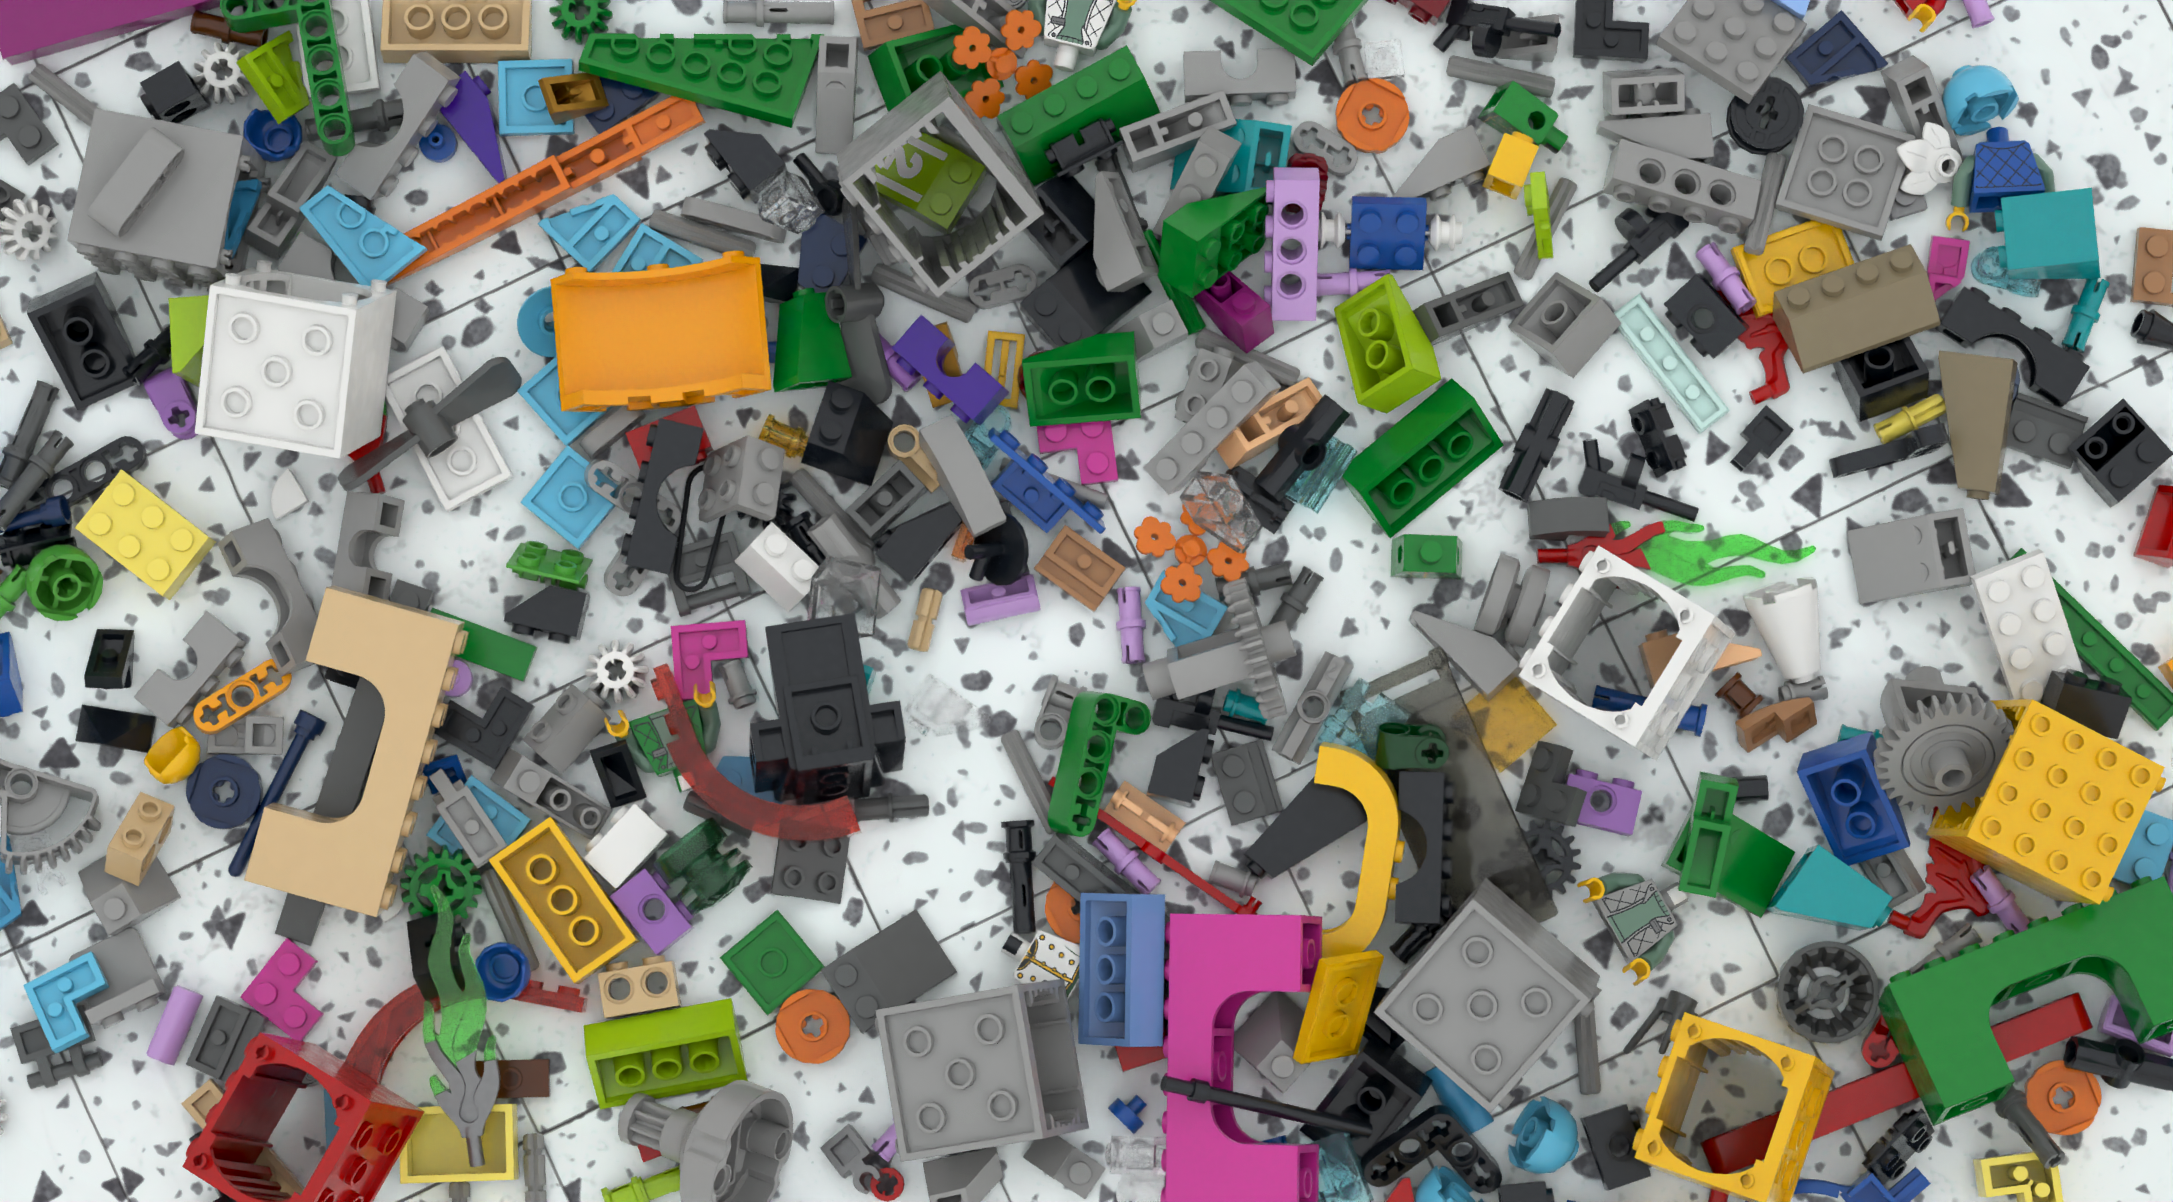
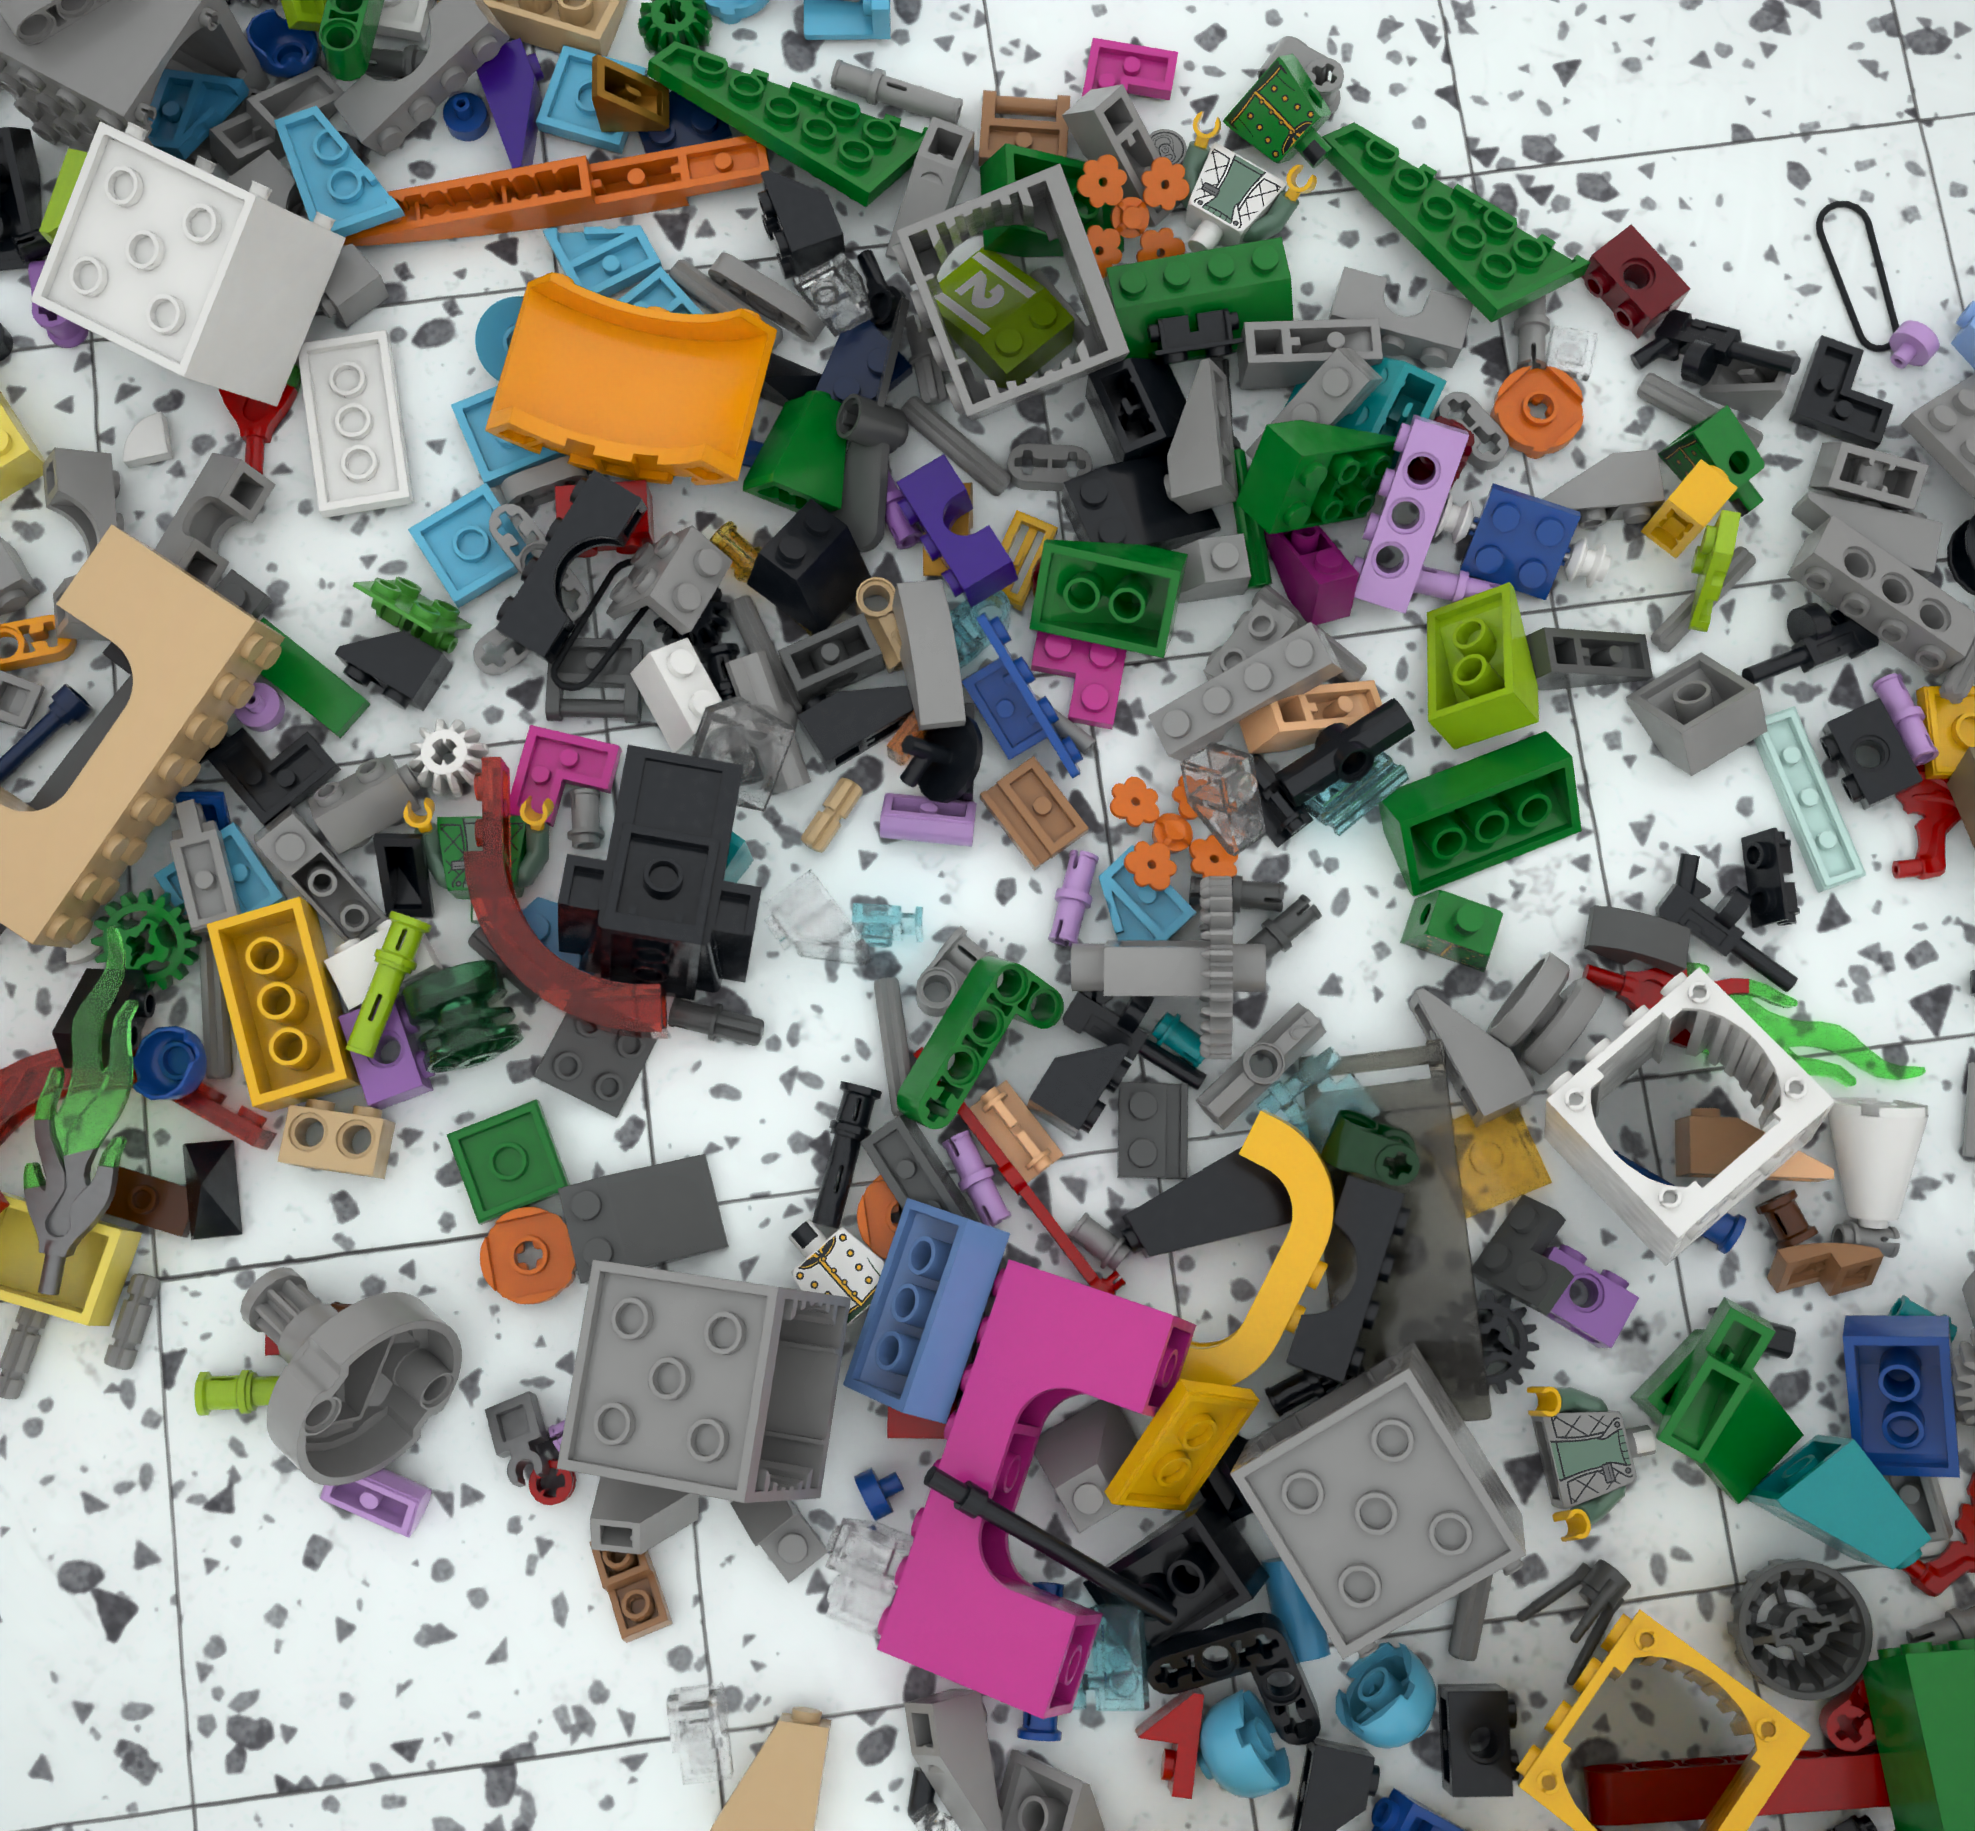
camera: 15 degrees right, 5 degrees down
(432, 424) = (406, 385): dark grey piece -> none
(558, 1055) = (212, 1189): none -> black slope
(639, 858) = (386, 982): none -> lime pin
(665, 1053) = (339, 1229): lime slope -> none
(992, 695) = (886, 923): none -> clear light blue plate
(1536, 445) = (1623, 841): black piece -> none
(1762, 435) = (1898, 916): black plate -> none

